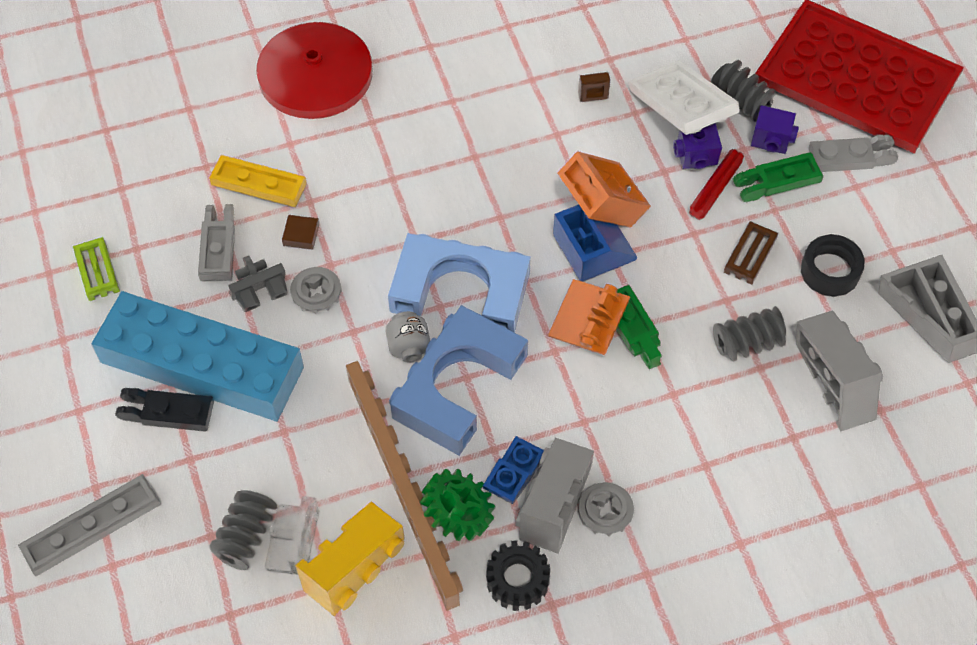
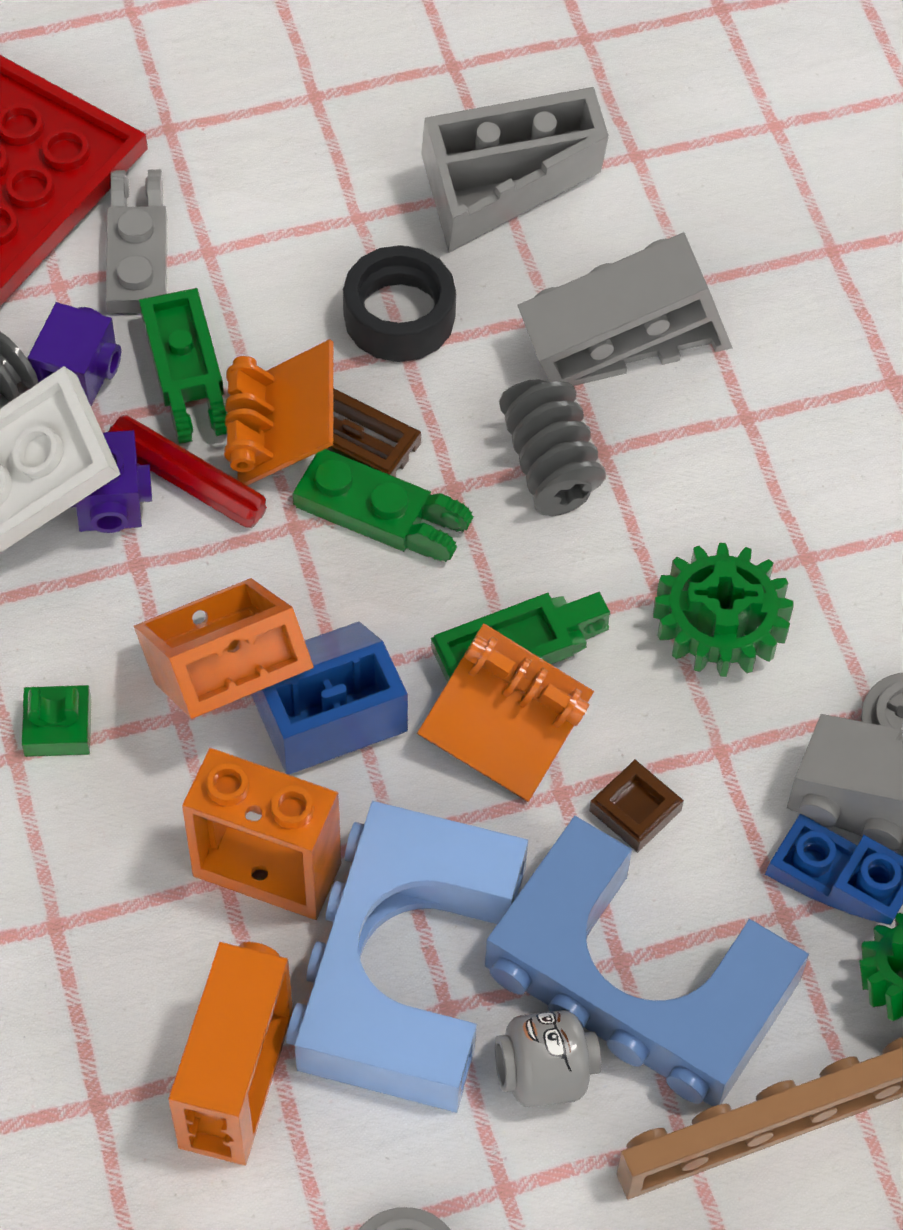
camera: 90 degrees left, 0 degrees up
(407, 195) = (232, 1052): none -> orange window
(508, 210) = (291, 841): none -> orange window
(547, 381) = (636, 805): none -> reddish brown tile
(573, 141) = (56, 720): none -> green tile
(647, 419) = (717, 603): none -> green gear
(709, 263) = (380, 505): none -> green hinge
(758, 211) = (278, 412): none -> orange hinge

